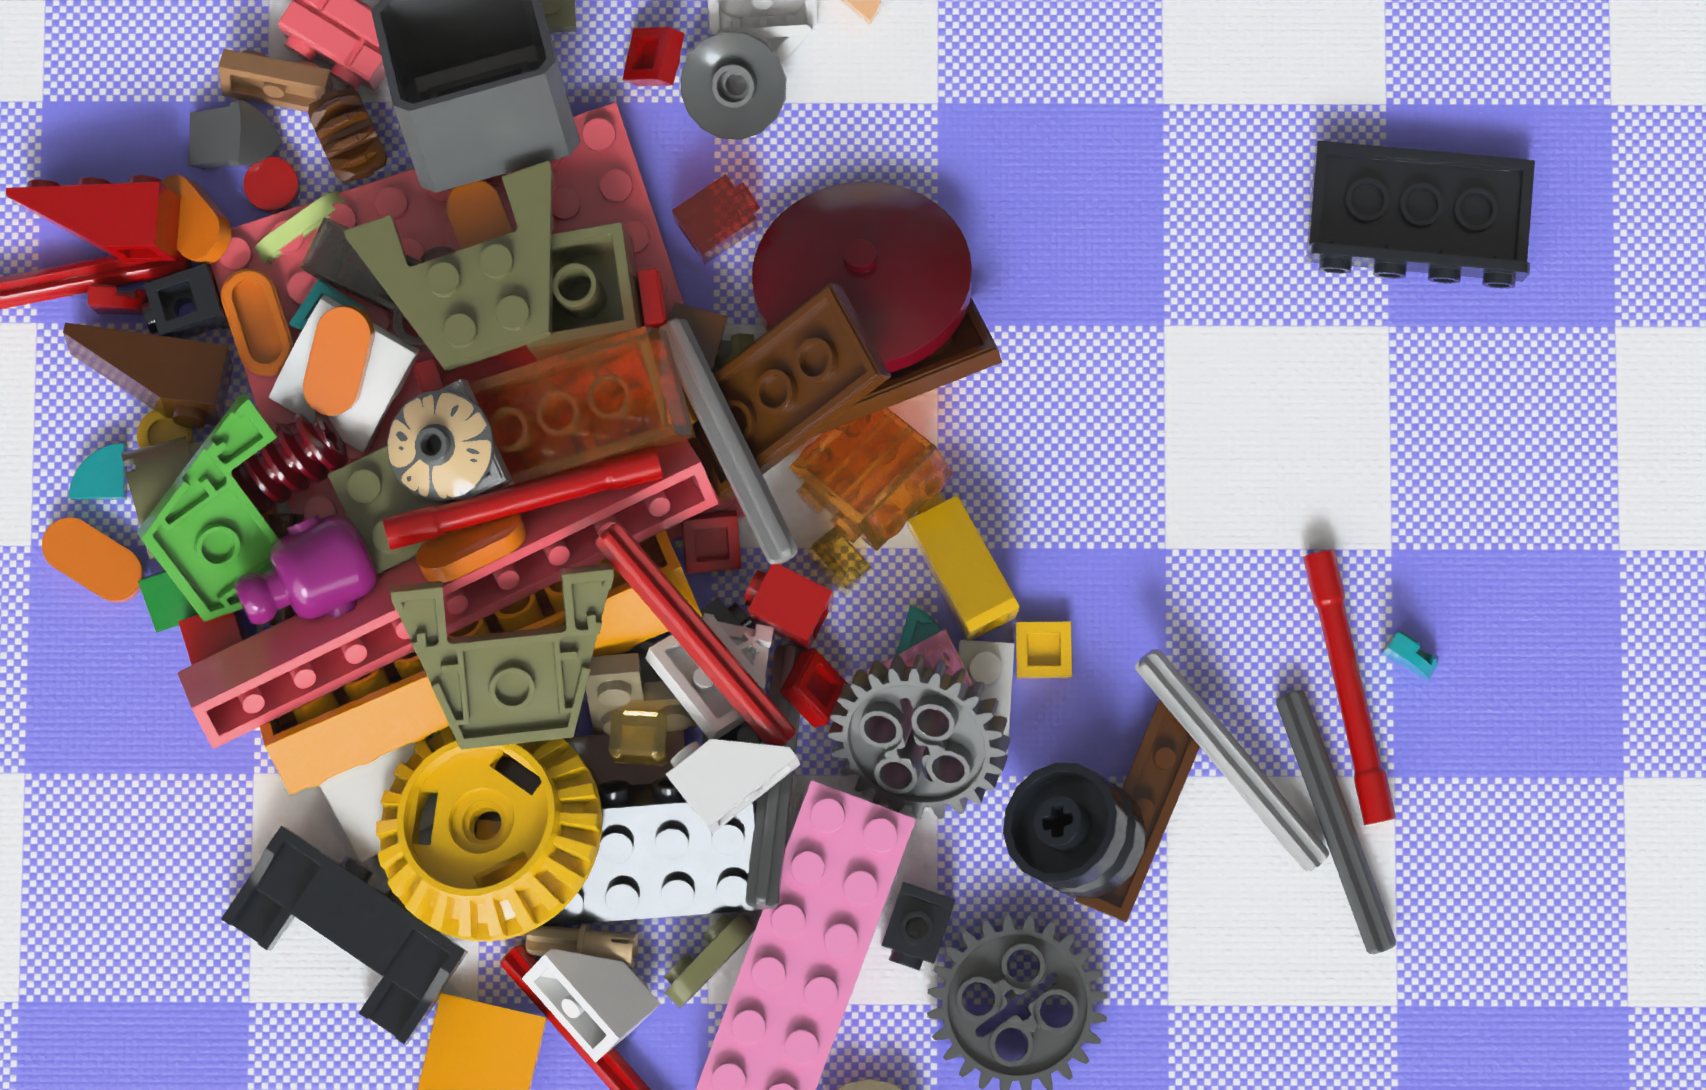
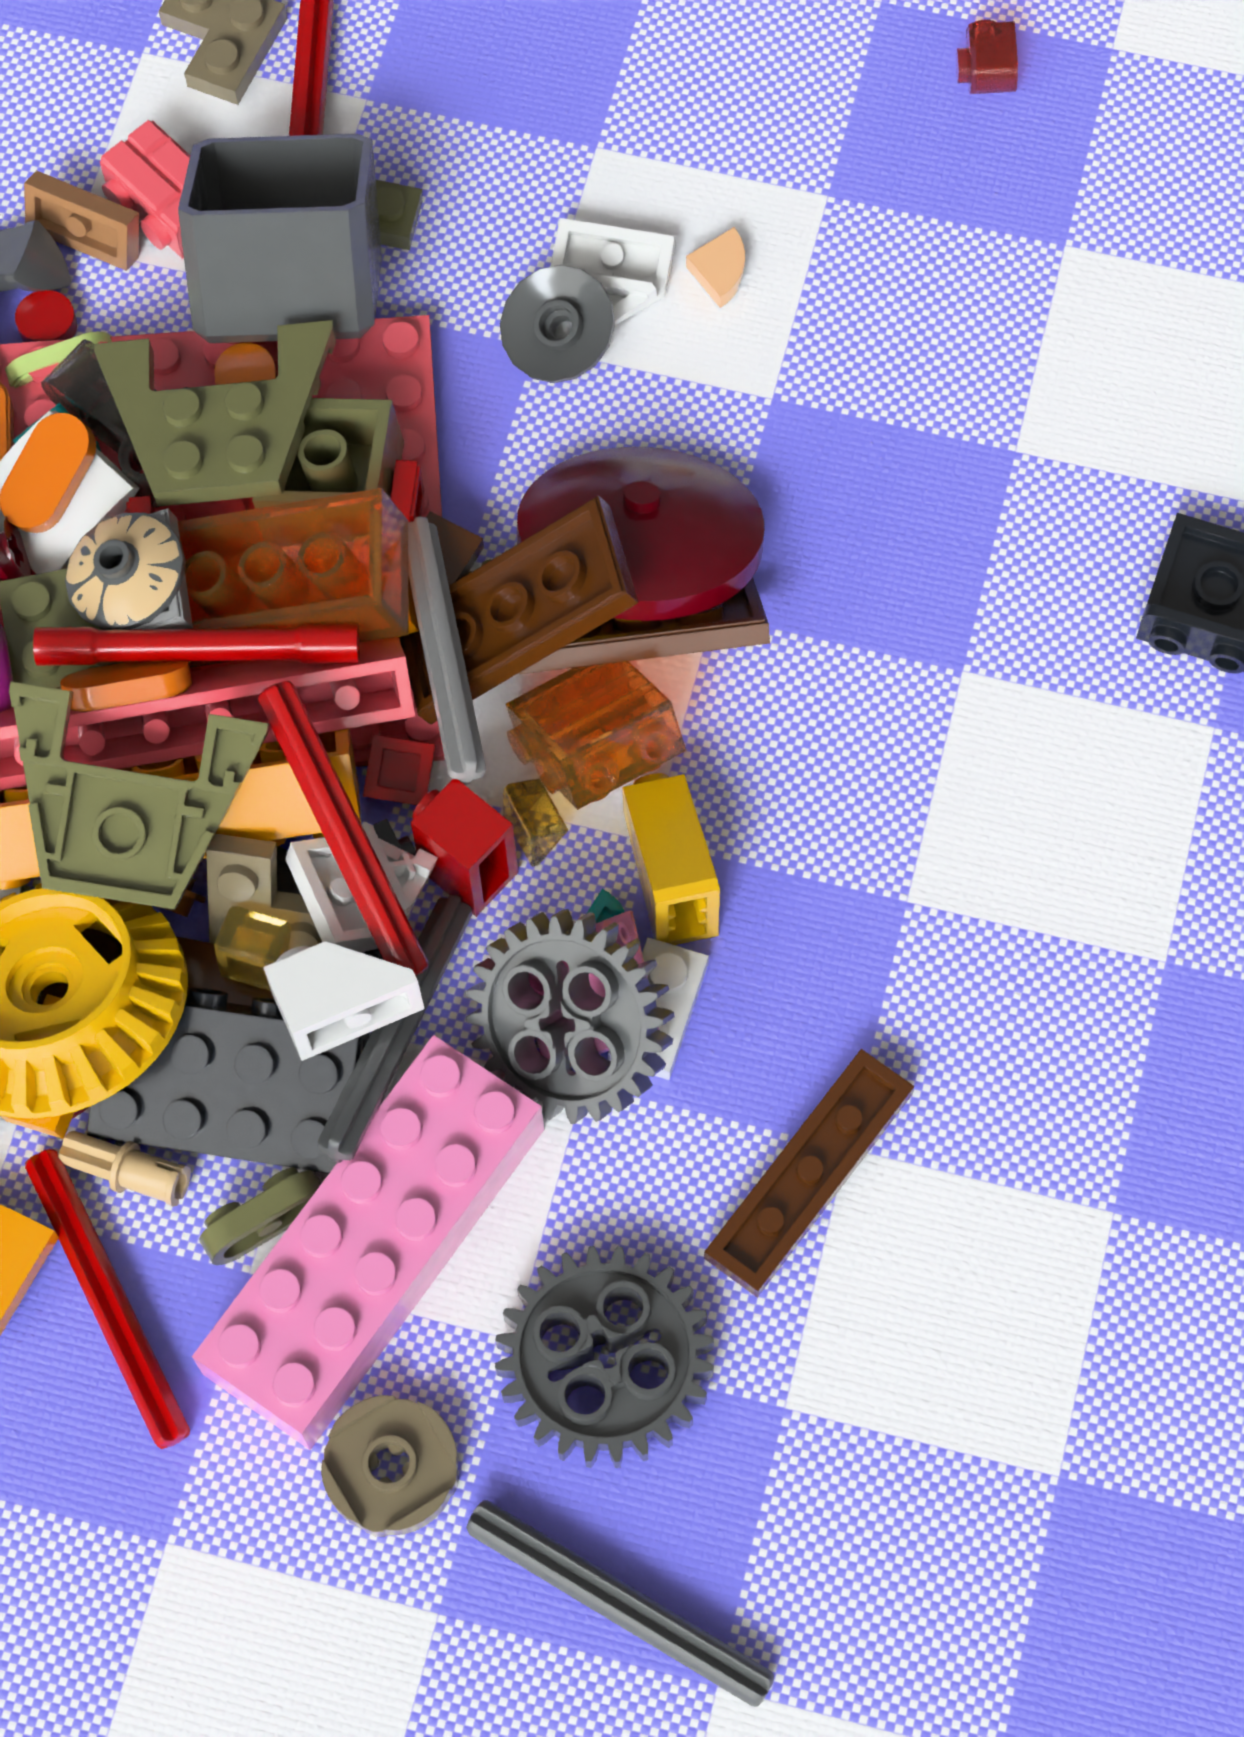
camera: 15 degrees right, 15 degrees down
(347, 134) = (136, 278): reddish brown gear -> none
(591, 997) = (113, 1221): white slope -> none
(653, 56) = (482, 281): red plate -> none
(717, 217) = (501, 448): clear red brick -> none
(813, 687) = (463, 943): red tile -> none
(920, 903) = (516, 1262): black brick -> none
(1043, 650) = (740, 973): yellow tile -> none
(1074, 830) = (721, 1164): black wheel -> none
(1232, 760) = (927, 1137): light grey axle -> none
(1329, 599) = (1084, 1200): red piece -> none
(1336, 822) = (1033, 1245): dark grey axle -> none
(1406, 652) = (1153, 1070): teal tile -> none

